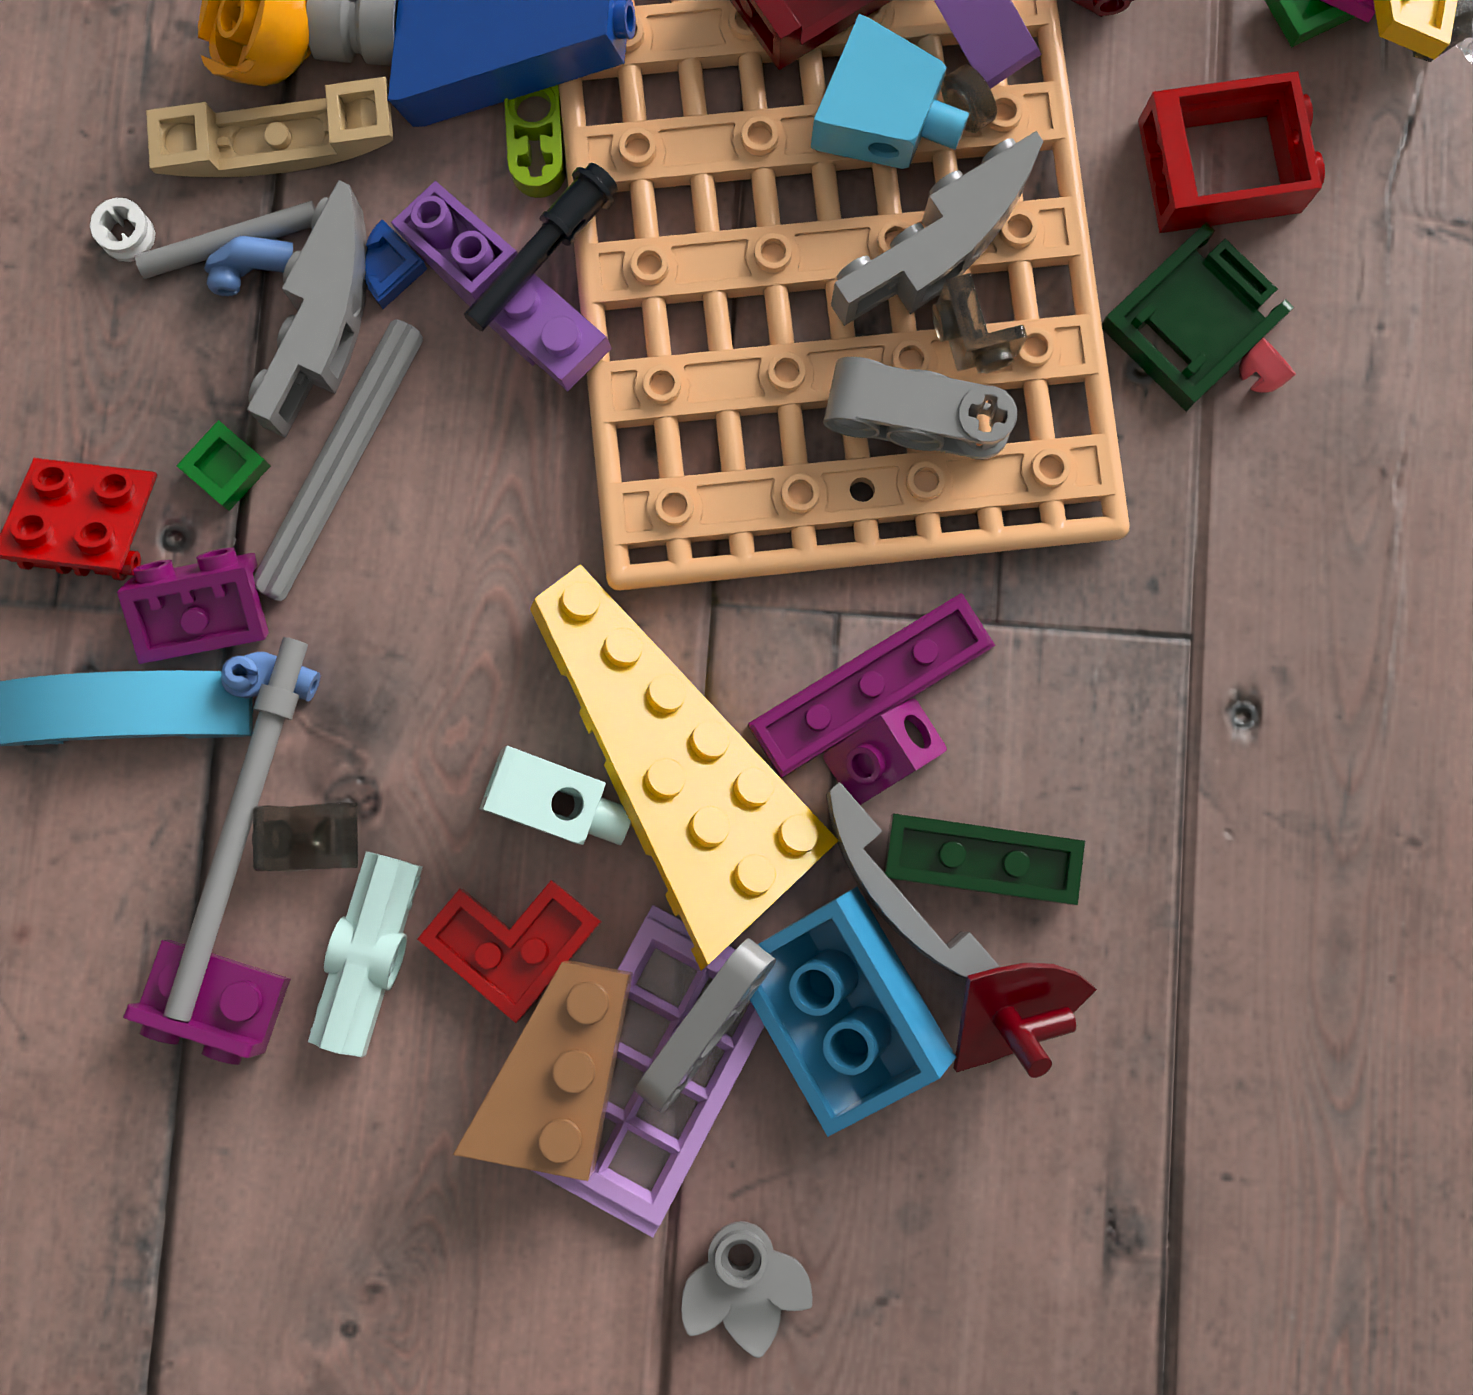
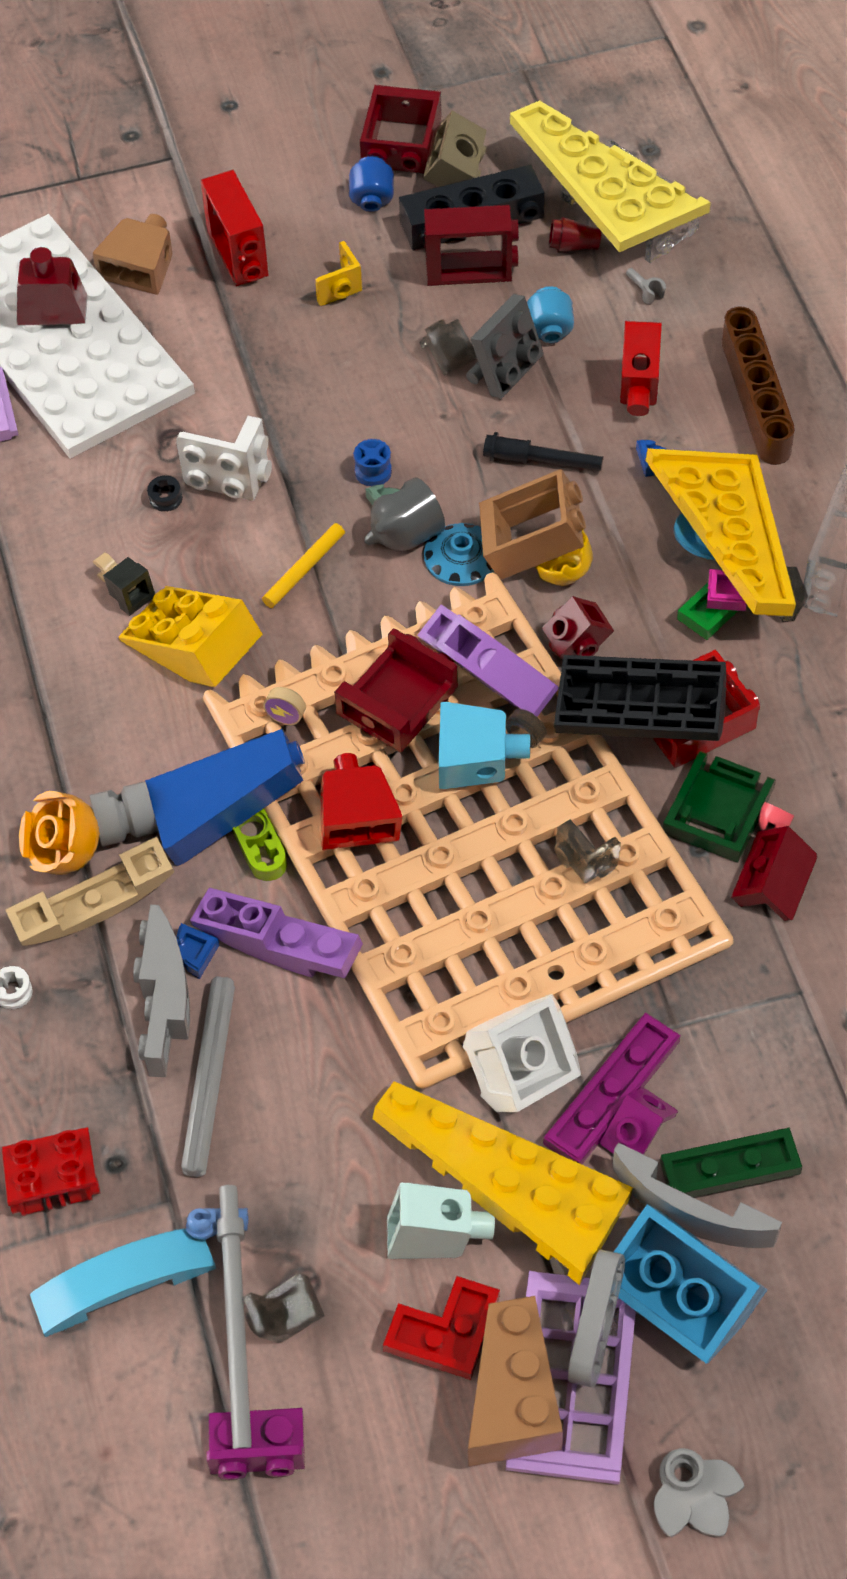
camera: 15 degrees left, 25 degrees down
(193, 606) = (151, 1195): magenta bracket -> none
(200, 247) = (83, 970): light grey bar -> none
(223, 465) = (133, 1106): green tile -> none
(242, 256) = (98, 974): medium blue arm -> none
(365, 955) = (351, 1370): light aqua piece -> none
(562, 222) = (313, 856): black pin -> none
(678, 132) = (357, 806): none -> red torso
(766, 600) = (522, 1055): none -> white slope
(917, 409) = (572, 907): light grey piece -> none
(959, 226) = (547, 806): light grey slope -> none
(1015, 1010) = (791, 1243): dark red shield -> none
(1155, 115) = (641, 697): none -> black piece
(1231, 449) = (776, 872): none -> dark red panel

